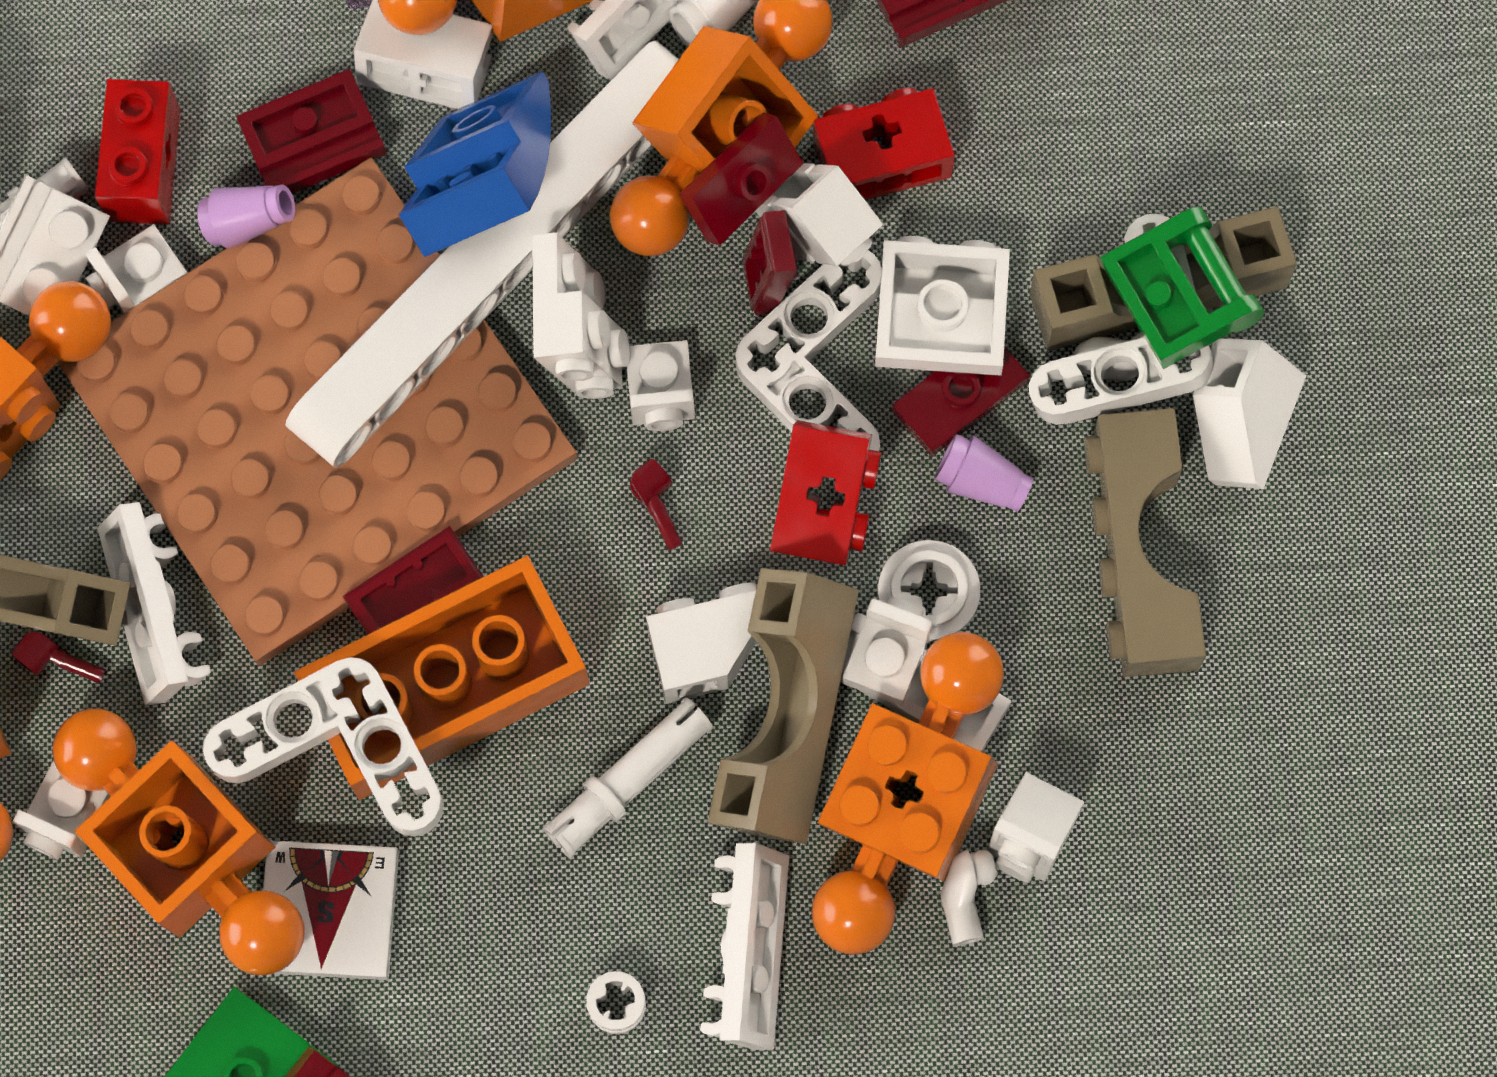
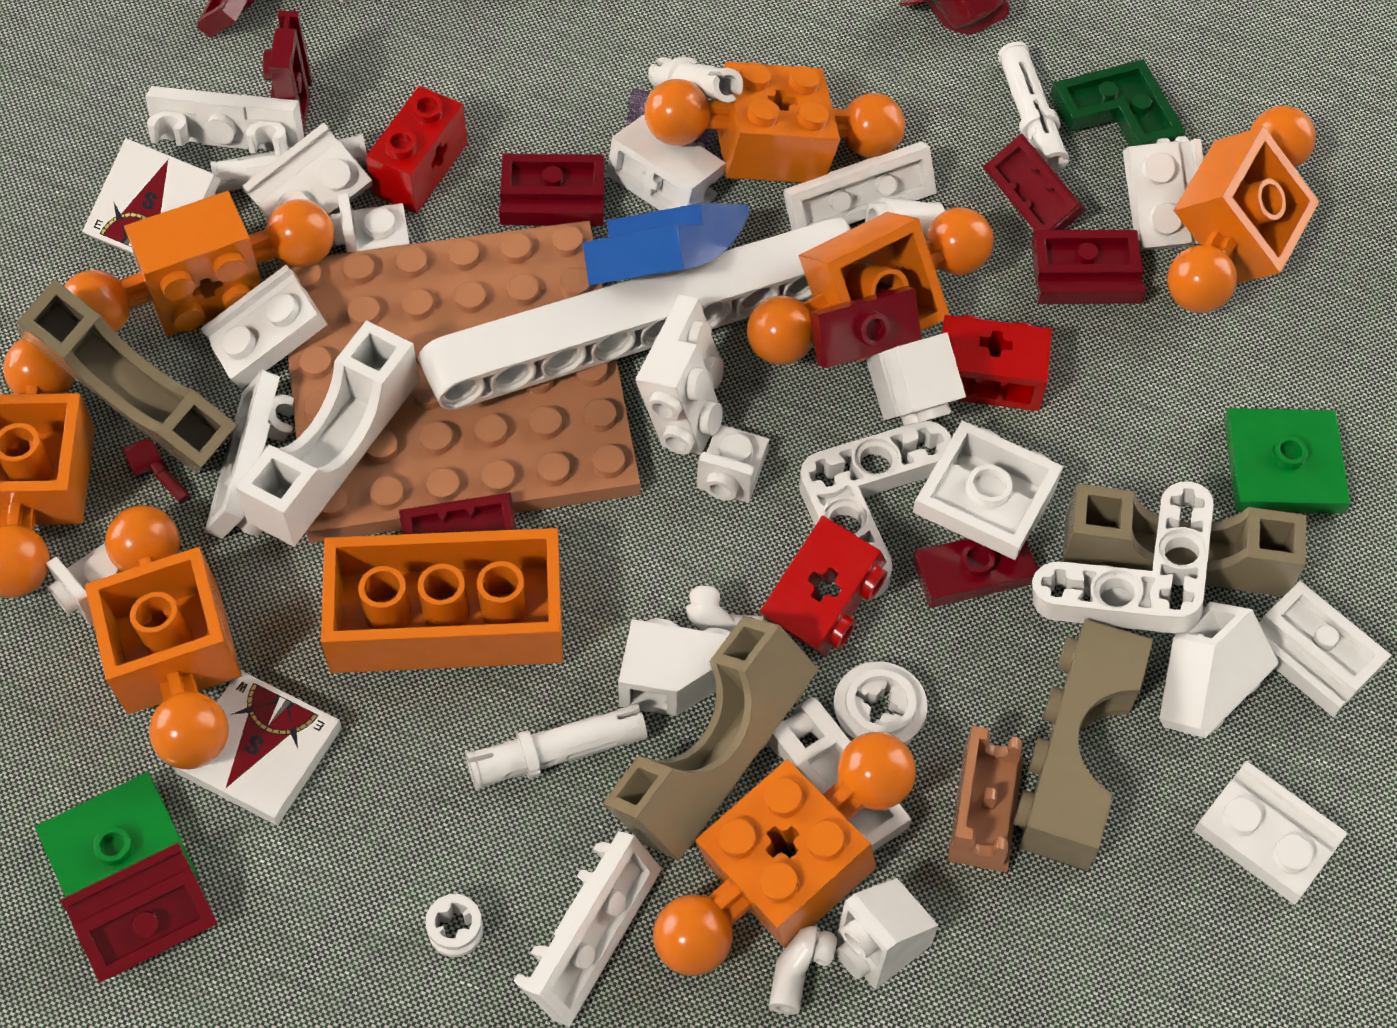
camera: 20 degrees right, 15 degrees down
(85, 446) = (263, 326): none -> white plate
(243, 213) = (472, 217): lavender cone -> none
(245, 512) = (296, 481): none -> white arch
(328, 720) = (332, 581): white beam -> none
(646, 486) = (687, 531): dark red hand -> none
(715, 572) = (706, 612): none -> white arm
(769, 262) = (863, 398): dark red plate -> none
(888, 649) = (822, 728): white bracket -> none
(982, 474) = (965, 632): lavender cone -> none
(1074, 648) = (986, 802): none -> nougat hinge
(1164, 299) = (1180, 545): green plate -> none
(1230, 128) = (1286, 460): none -> green plate
(1338, 336) = (1321, 648): none -> white plate
(1359, 554) = (1270, 832): none -> white plate

